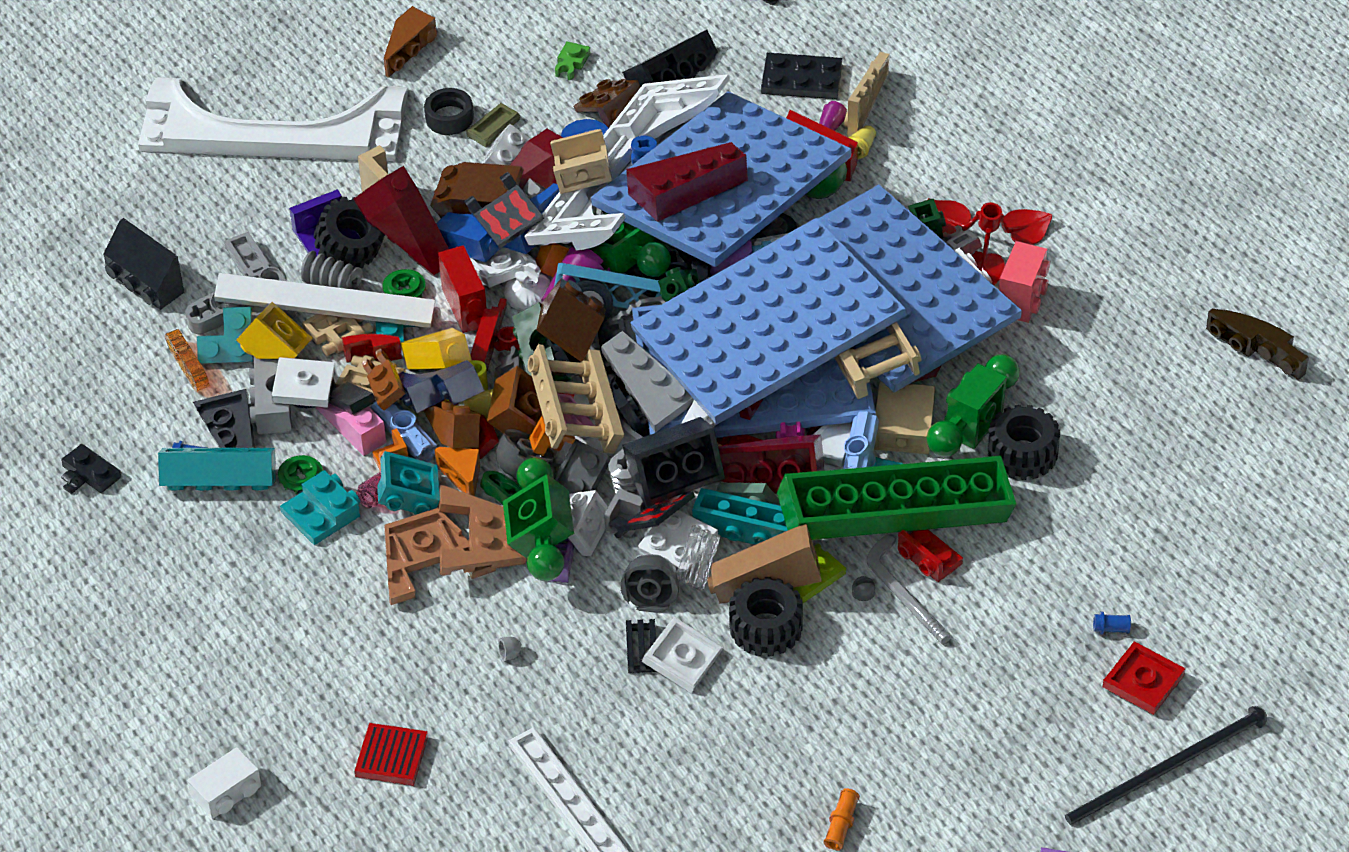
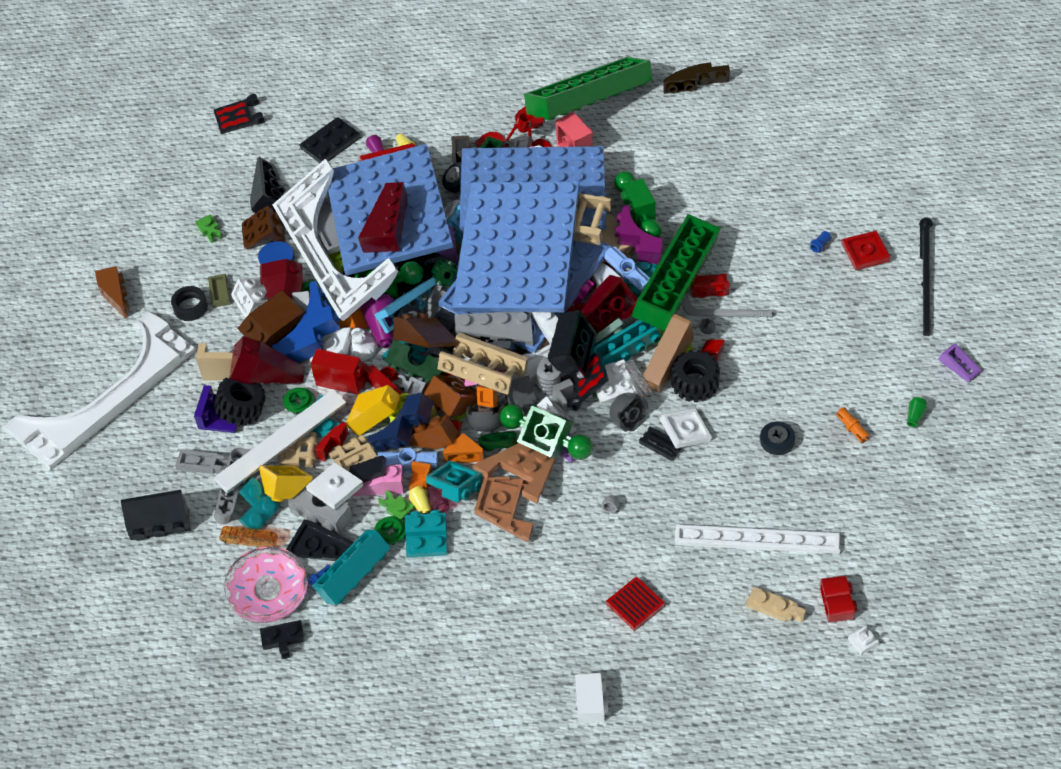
camera: 50 degrees left, 5 degrees up
(134, 410) = (265, 584): none -> clear dish
(328, 273) = (257, 428): light grey piece -> none
(339, 459) = (396, 507): none -> bright green plate
(361, 470) = (420, 499): none -> light yellow cone
(384, 380) = (373, 446): dark orange hinge -> none
(506, 215) = (314, 316): flag -> none
(581, 161) = (314, 260): tan panel -> none
(641, 146) = (327, 232): blue wheel -> none
(761, 755) = (773, 444): none -> black wheel
(832, 615) = (714, 347): none -> red slope
(865, 94) = (378, 121): tan wing -> none
(907, 187) = (458, 143): none -> dark brown slope
(910, 418) = (628, 234): none -> magenta arch
(1026, 425) = (672, 192): black tyre -> none
(1105, 240) = (588, 87): none -> green brick

